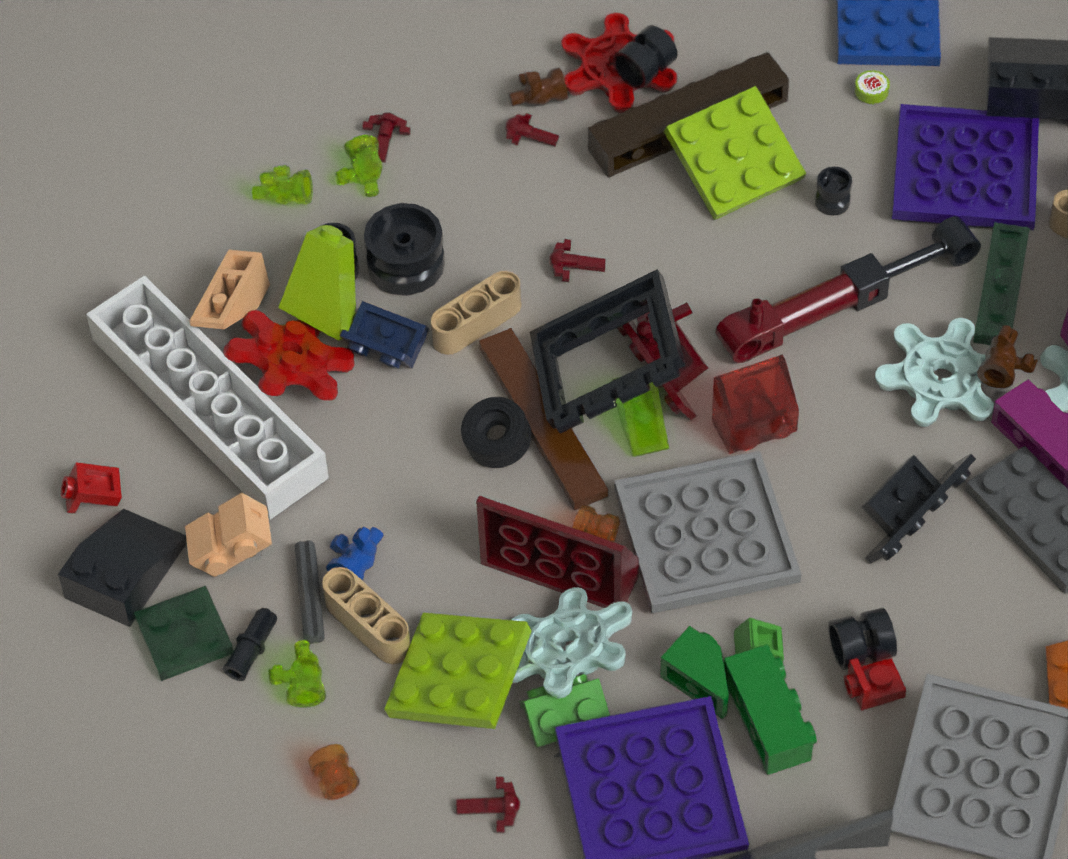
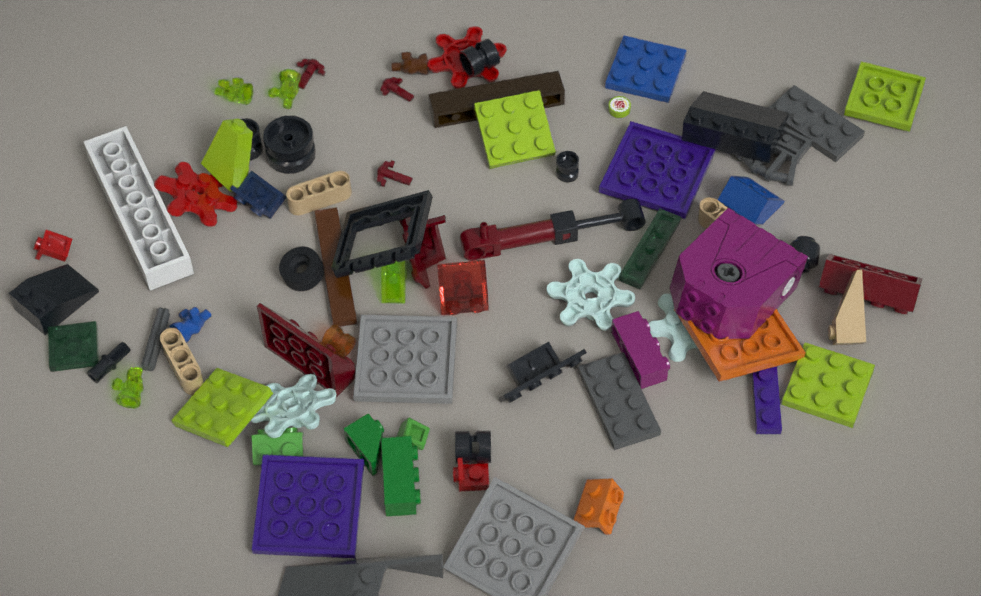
camera: 15 degrees right, 0 degrees up
(229, 536) = (117, 294): light nougat piece -> none
(233, 291) = (179, 145): light nougat slope -> none
(332, 769) = (126, 450): clear orange wheel -> none
(508, 805) = (221, 495): dark red piece -> none
(1002, 359) = (627, 294): reddish brown piece -> none

